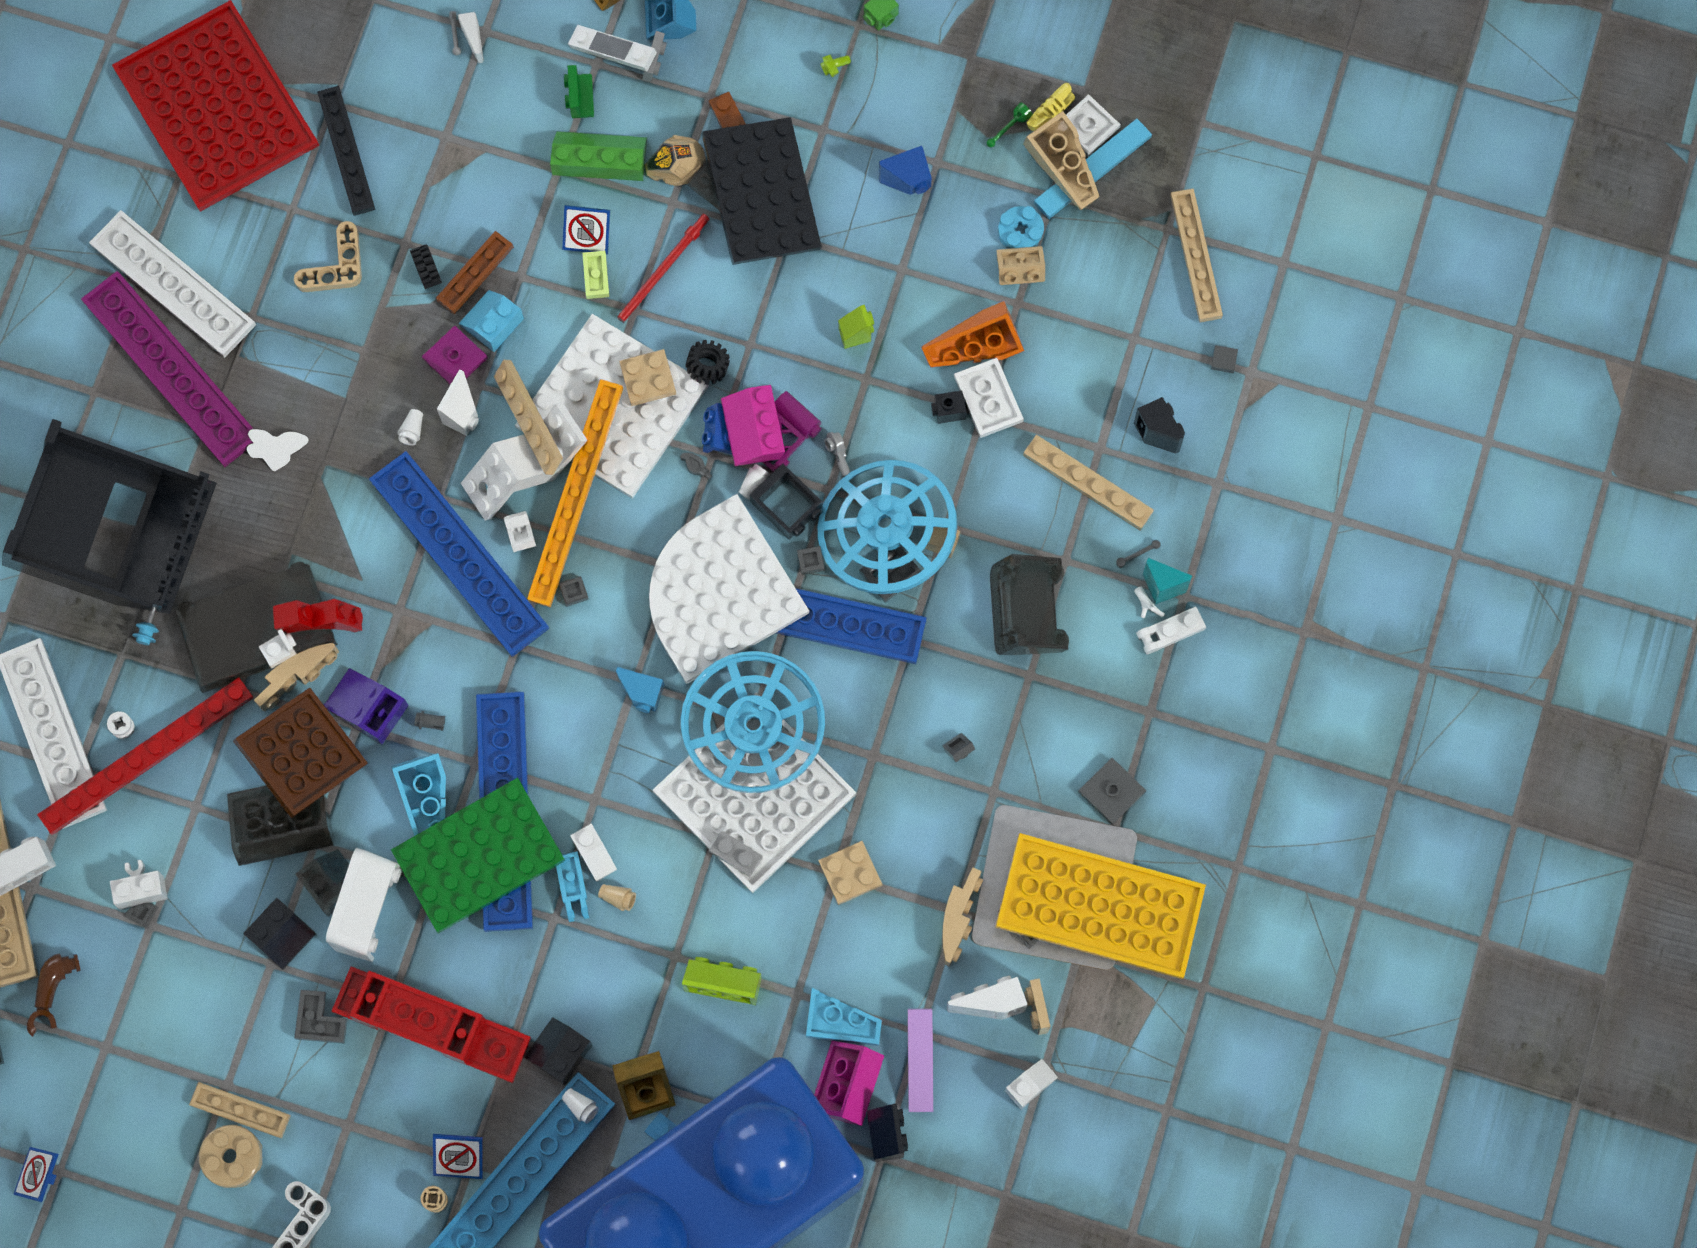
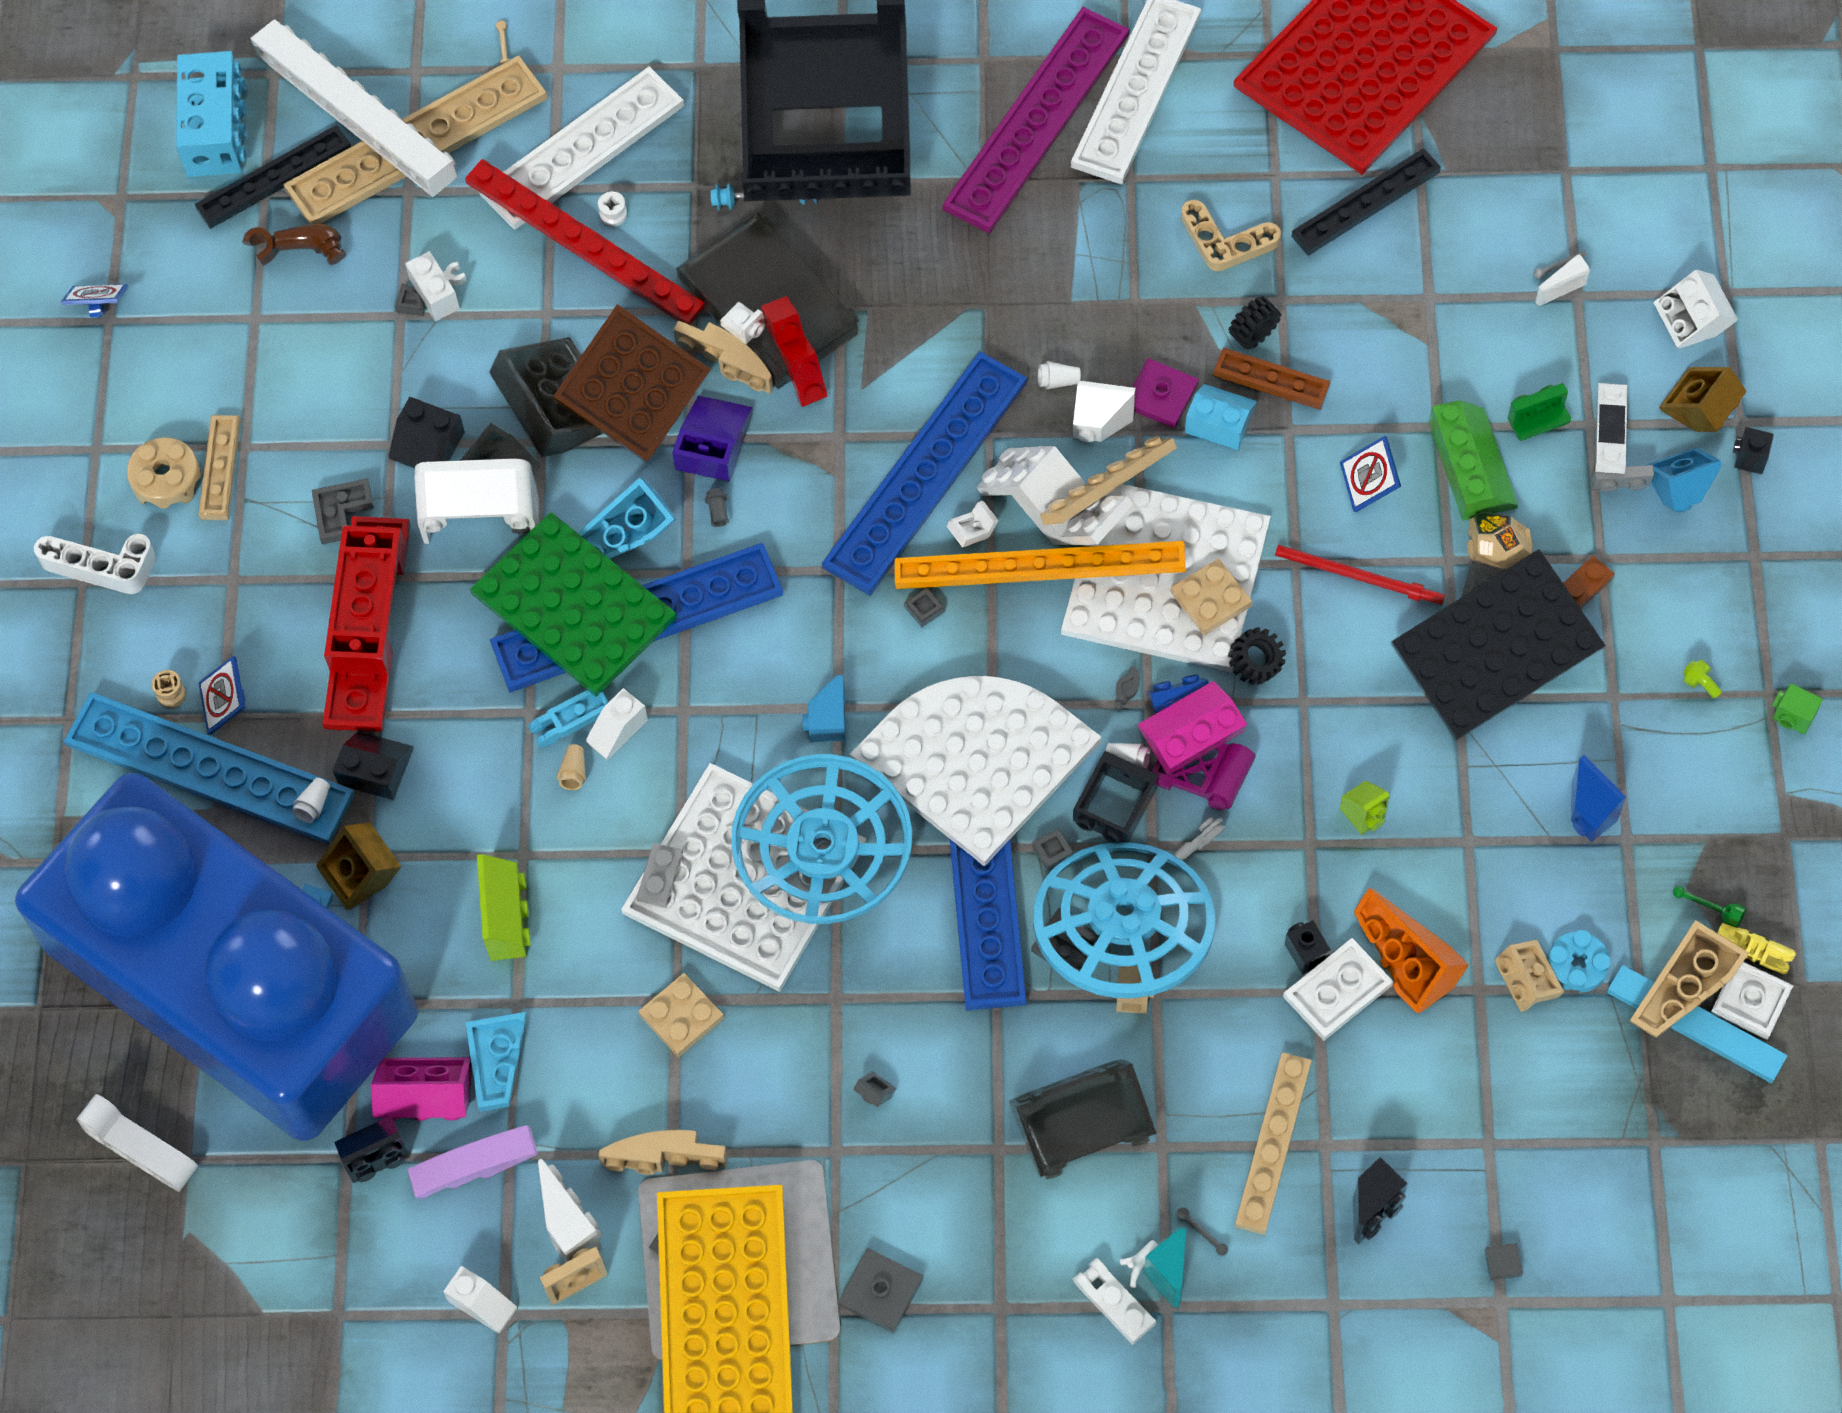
camera: 75 degrees right, 10 degrees down
(273, 449) = (981, 250): white sticker -> none
(595, 274) = (1320, 504): yellowish green plate -> none
(1196, 255) = (1630, 1183): tan plate -> none

